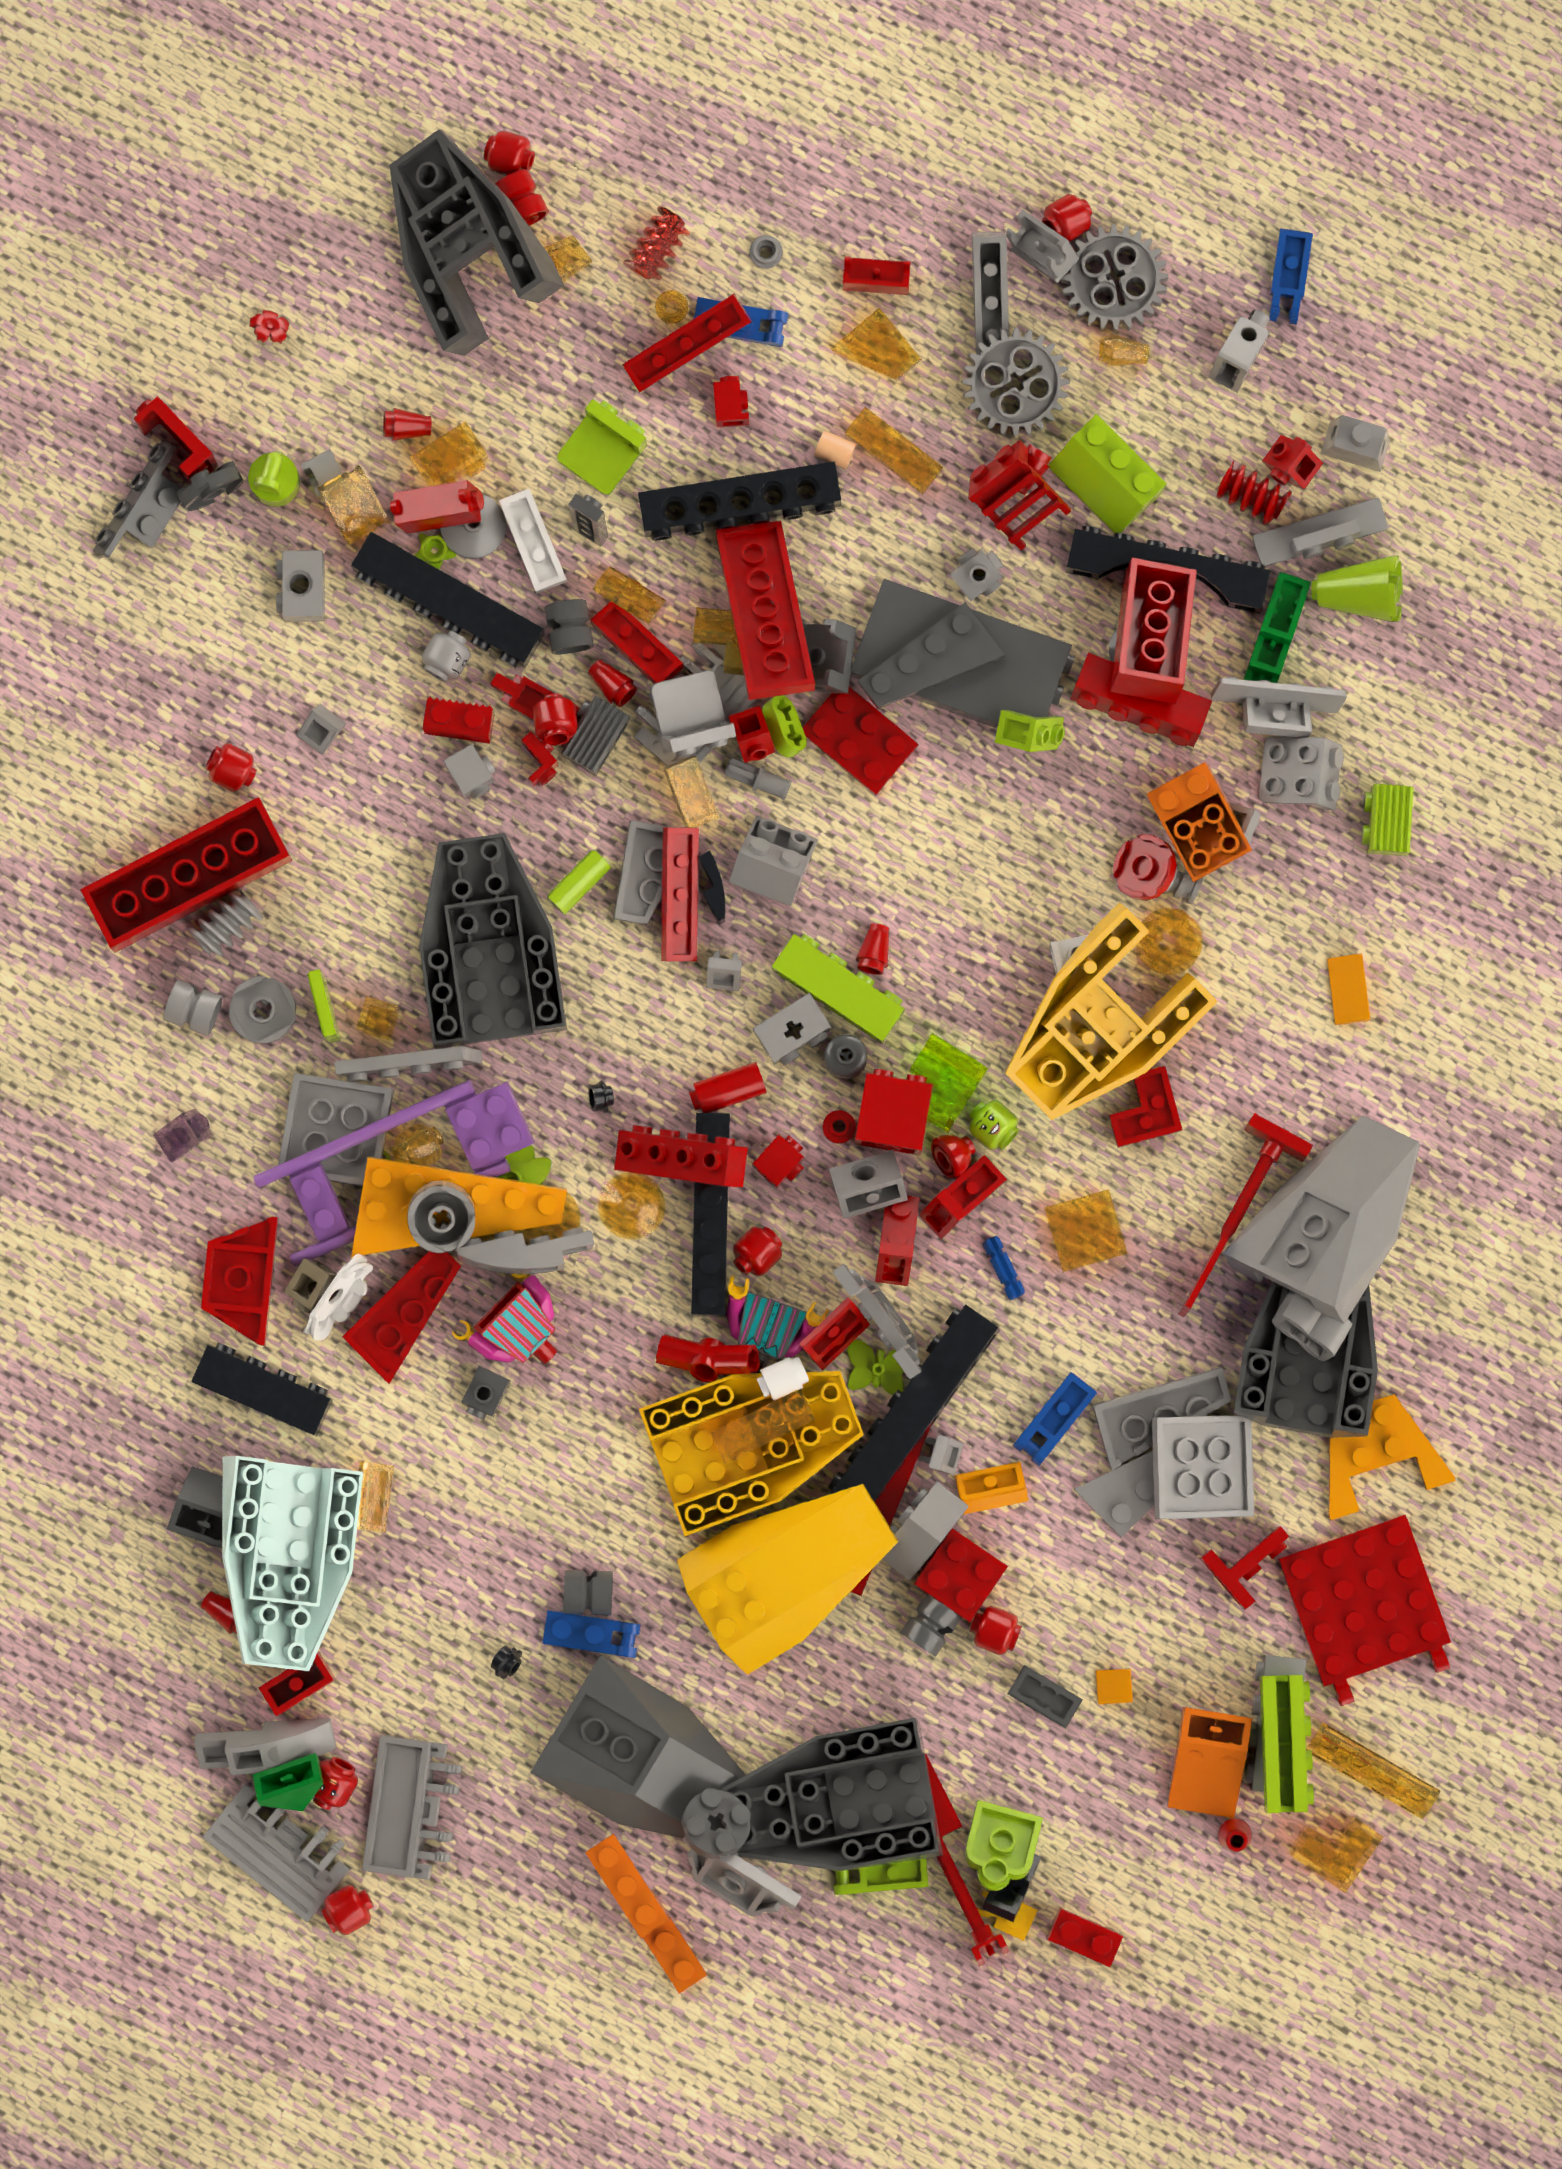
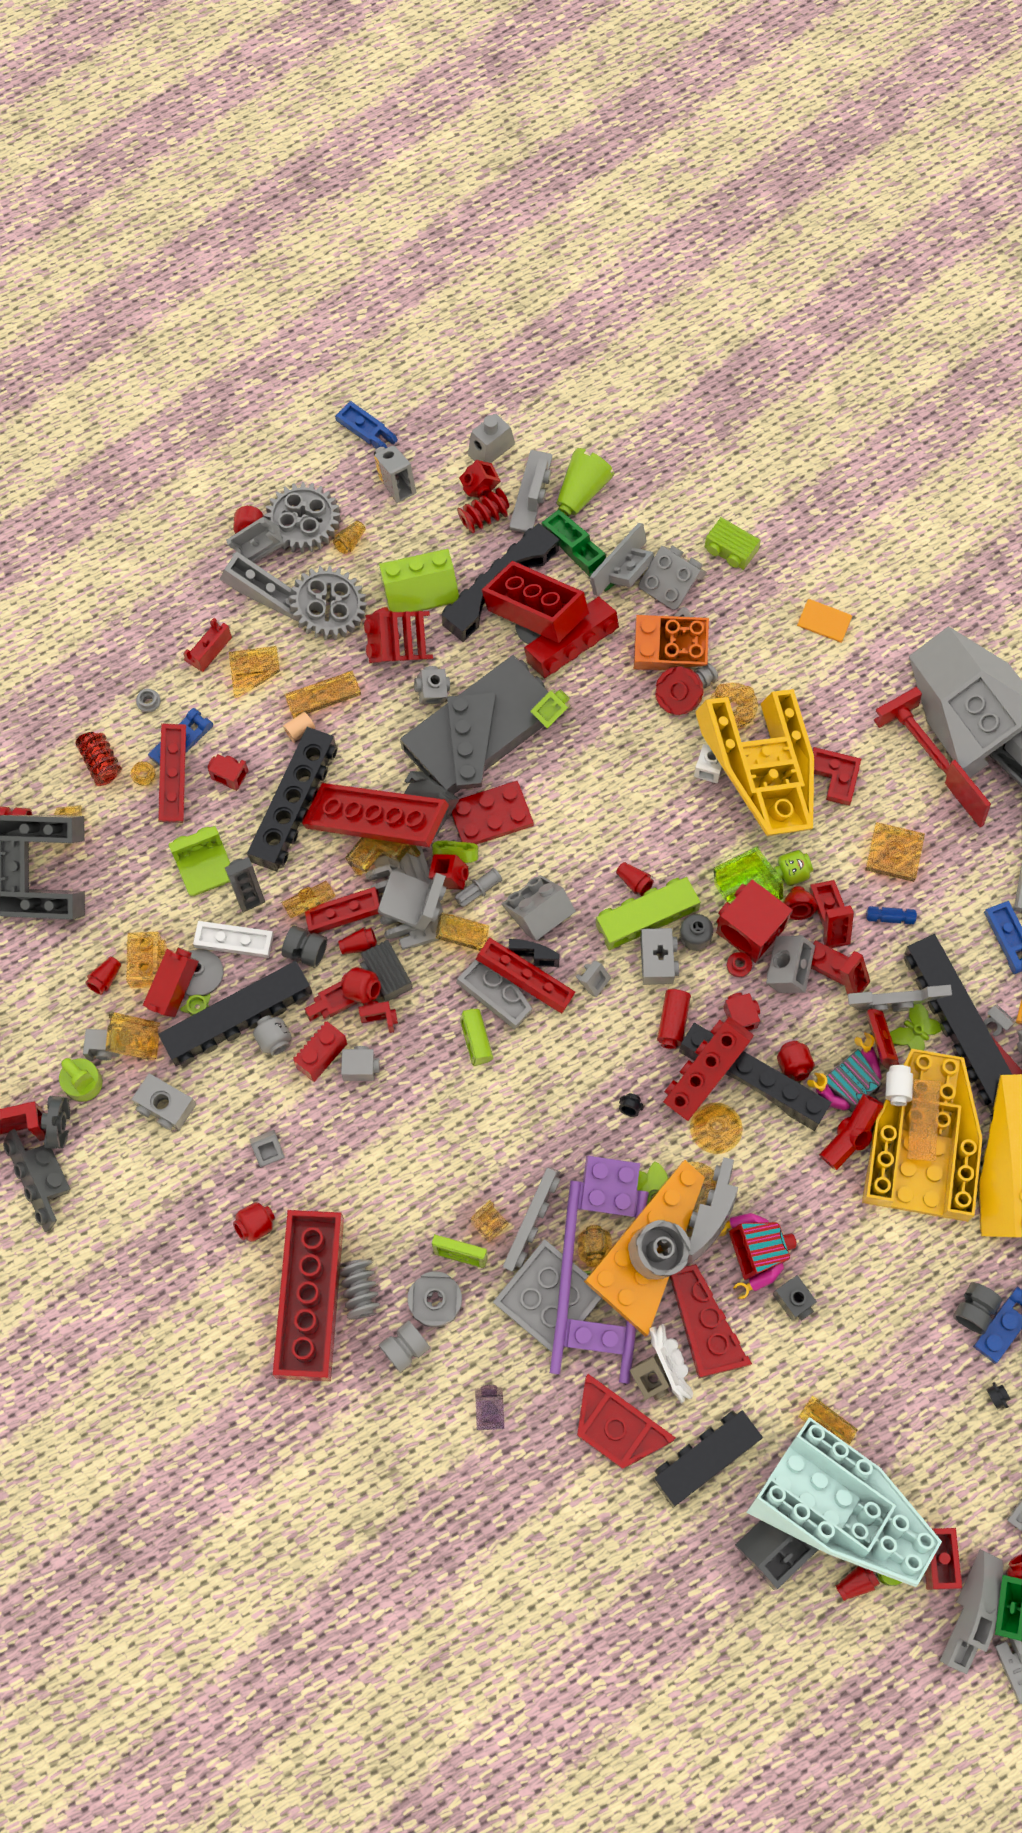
camera: 60 degrees left, 15 degrees down
(487, 948) = (486, 1118): dark grey wedge -> none

